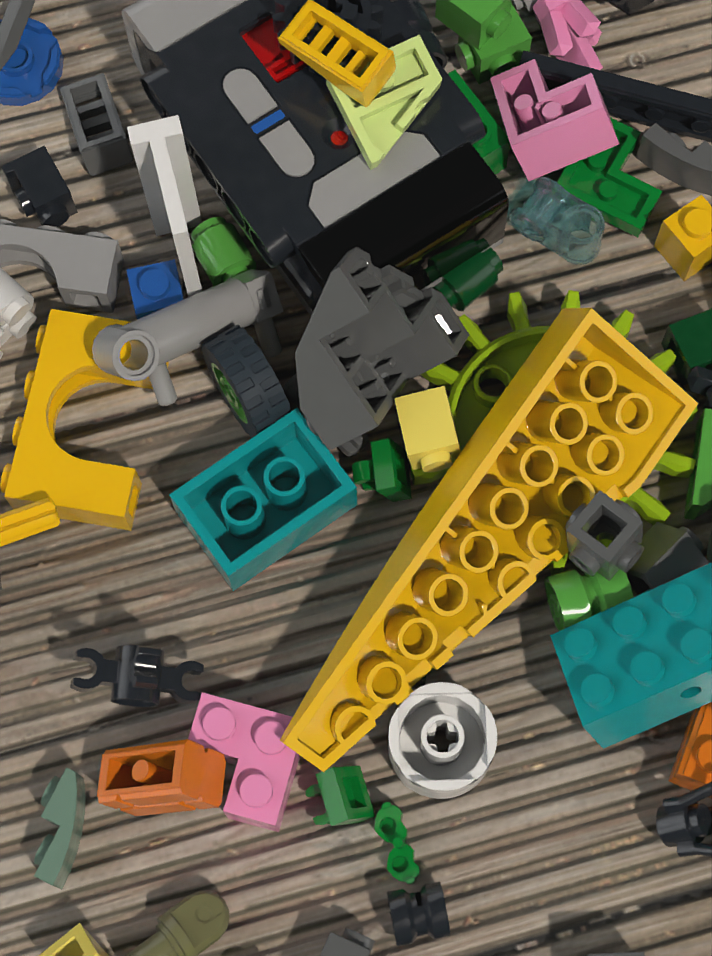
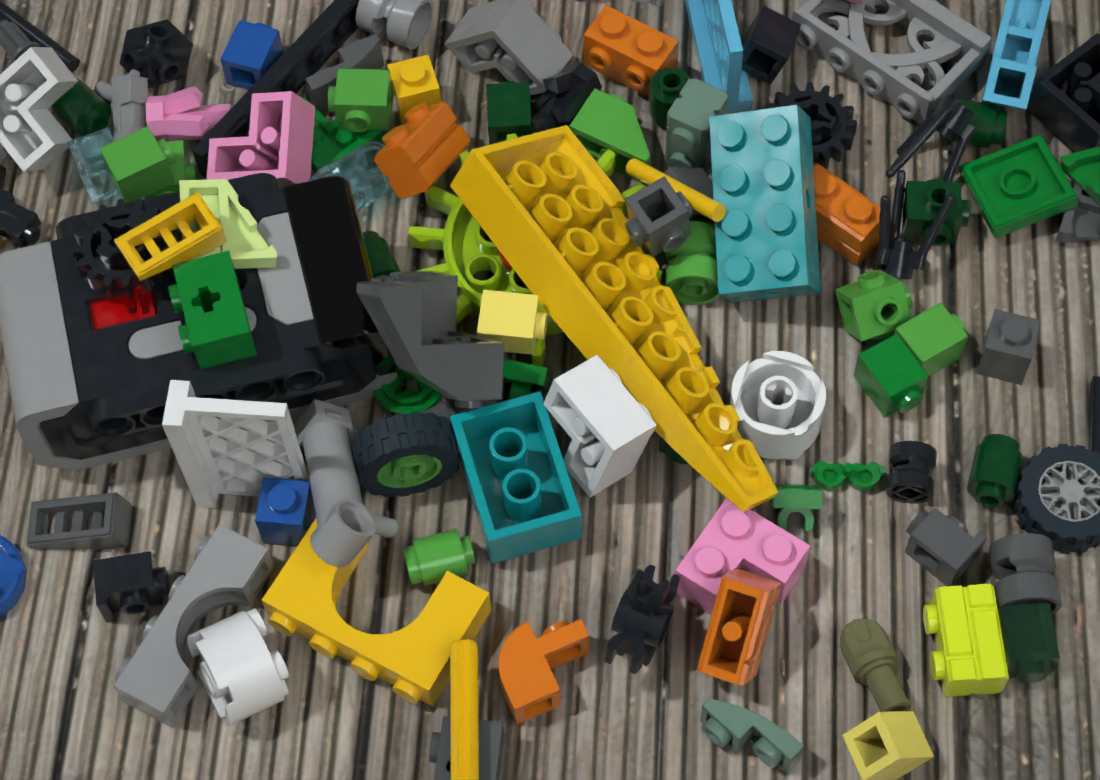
camera: 70 degrees left, 10 degrees down
(64, 582) = (528, 662): none -> orange brick
(158, 457) = (437, 554): none -> bright green brick
(286, 127) = (213, 310): none -> green brick
(342, 556) = (602, 420): none -> white brick
(529, 859) = (891, 376): none -> green brick
(591, 891) = (934, 338): none -> bright green brick
(609, 814) = (874, 305): none -> bright green brick
(613, 268) = (421, 148): none -> orange brick
(647, 187) = (362, 99): none -> bright green brick
(656, 546) = (697, 200): none -> yellow bar
(673, 61) = (250, 53): none -> blue brick

